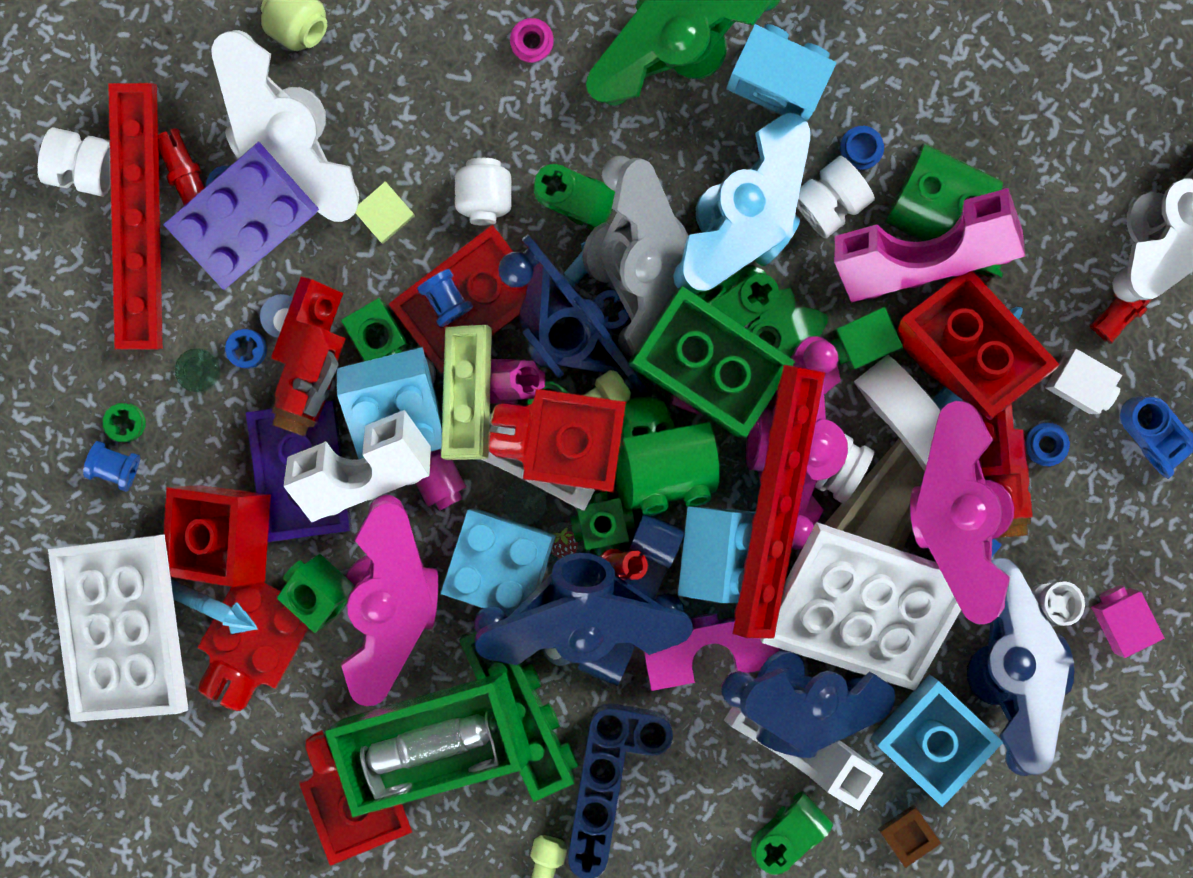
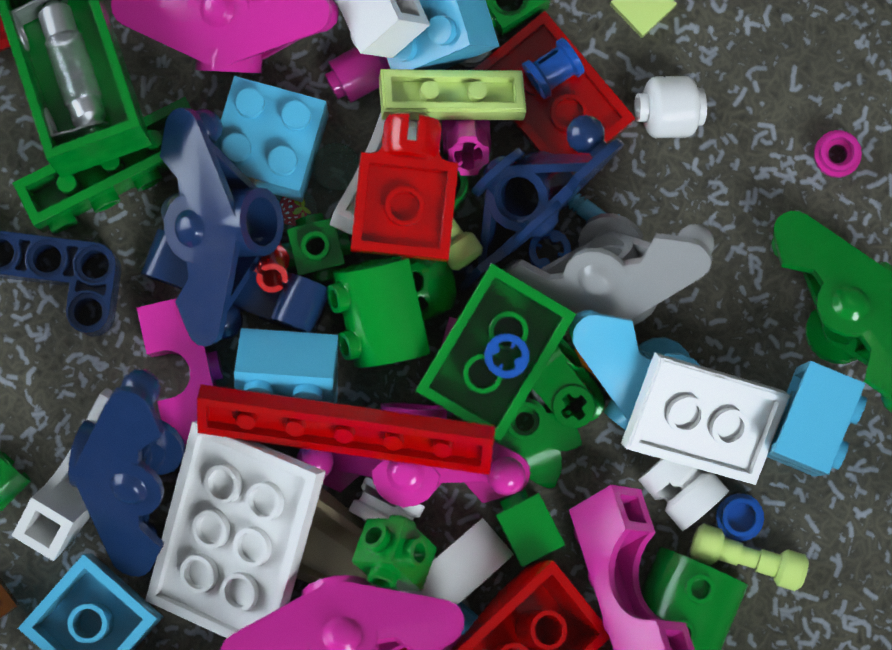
camera: 85 degrees right, 5 degrees down
(583, 198) = (667, 210): green piece -> none
(725, 339) = (519, 363): none -> blue bush
(779, 173) = (705, 419): none -> white tile
(891, 462) = (394, 554): none -> green brick
(910, 107) = (787, 568): none -> yellowish green piece

